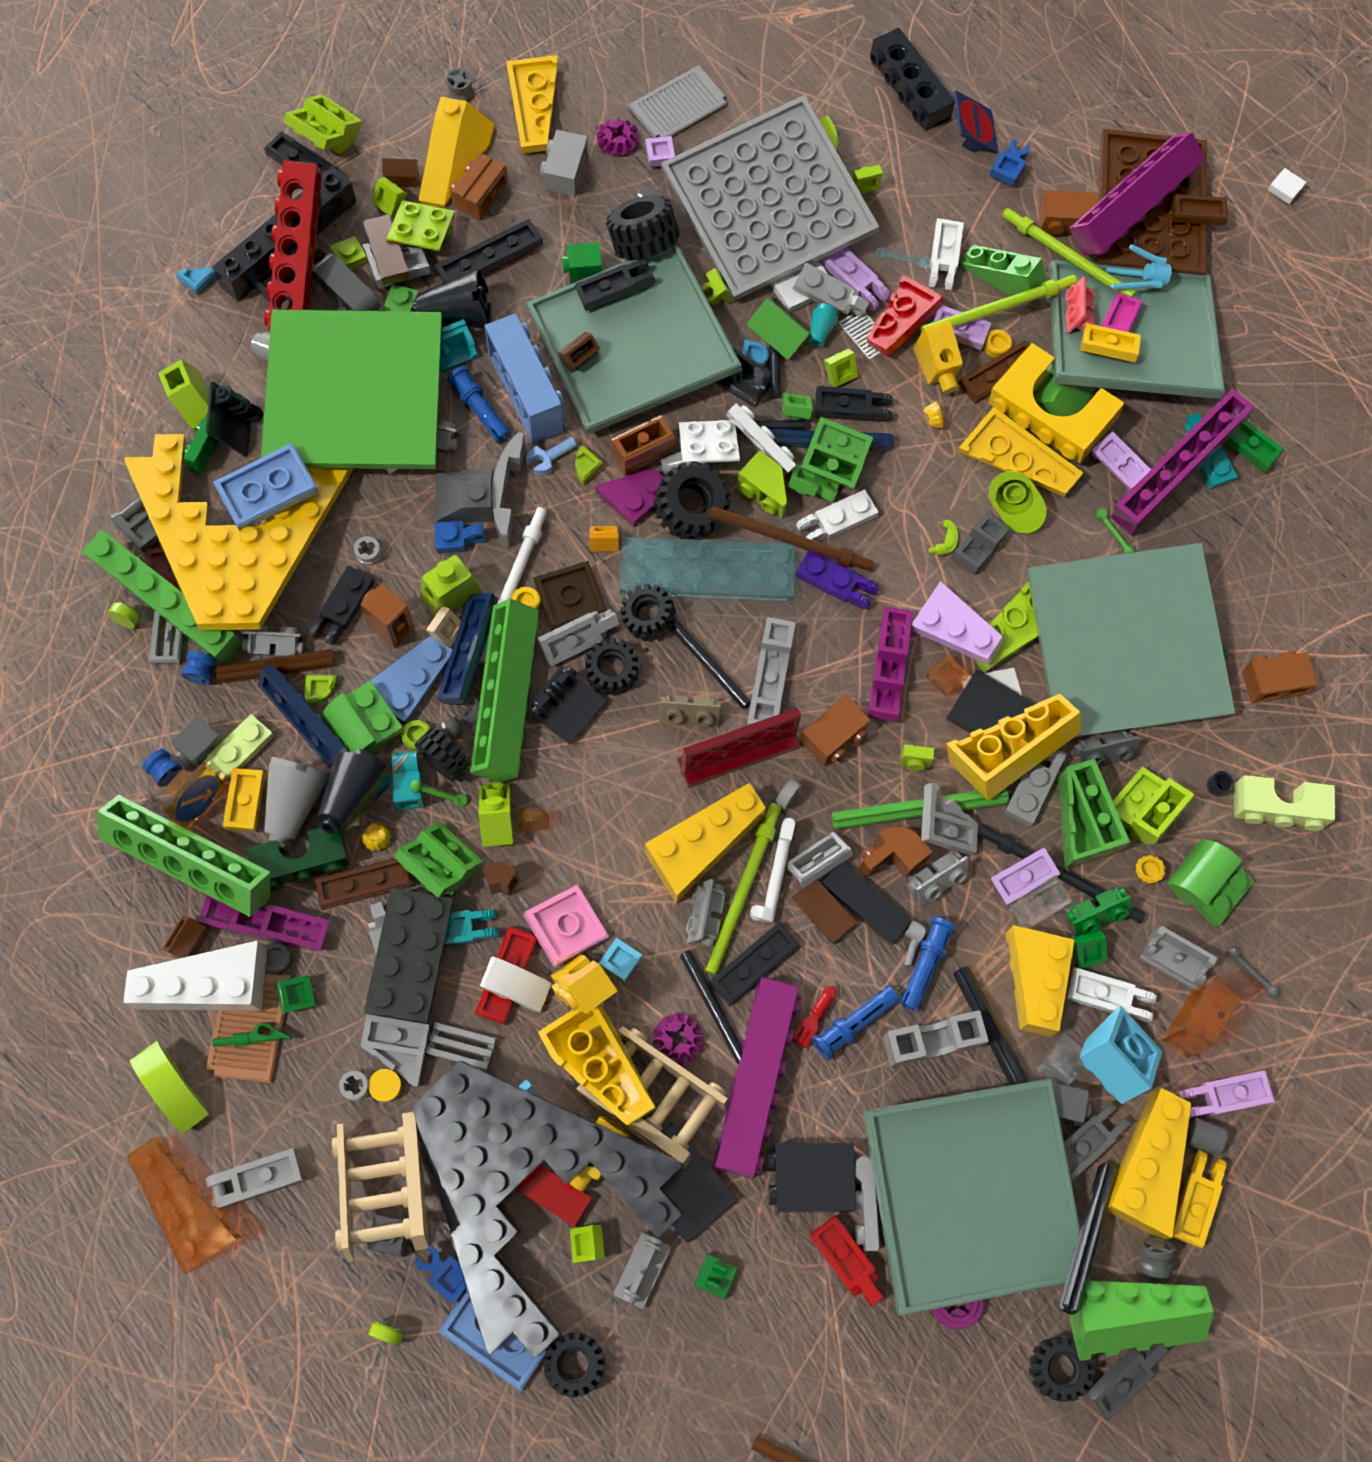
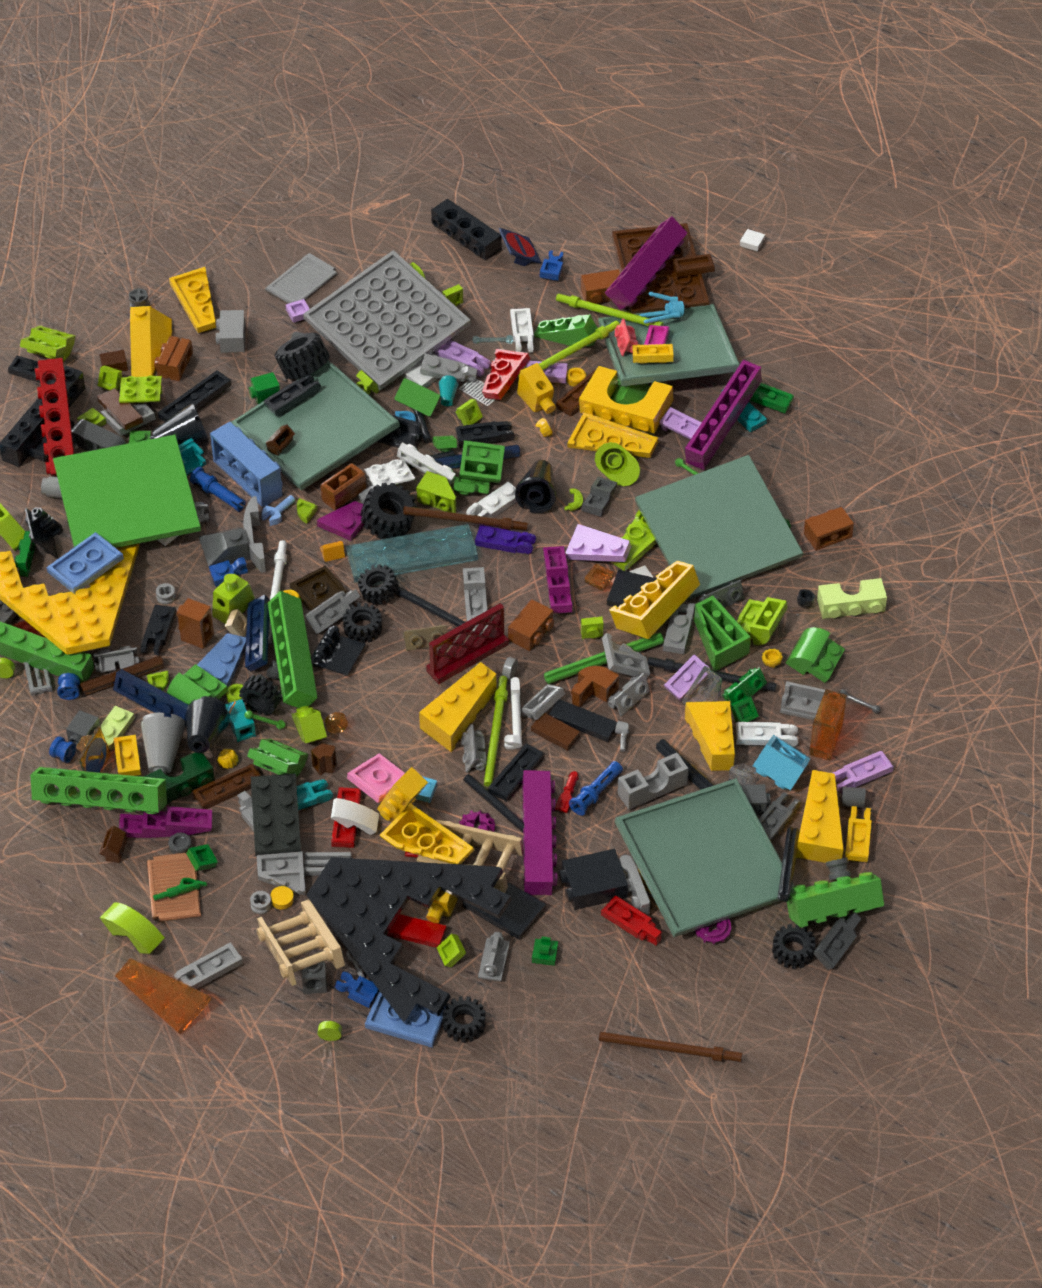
camera: 10 degrees left, 20 degrees down
(207, 981) = (133, 863): white wedge -> none
(619, 145) = (268, 312): magenta gear -> none
(901, 511) = (537, 488): none -> black cone
(932, 951) = (637, 735): blue pin -> none

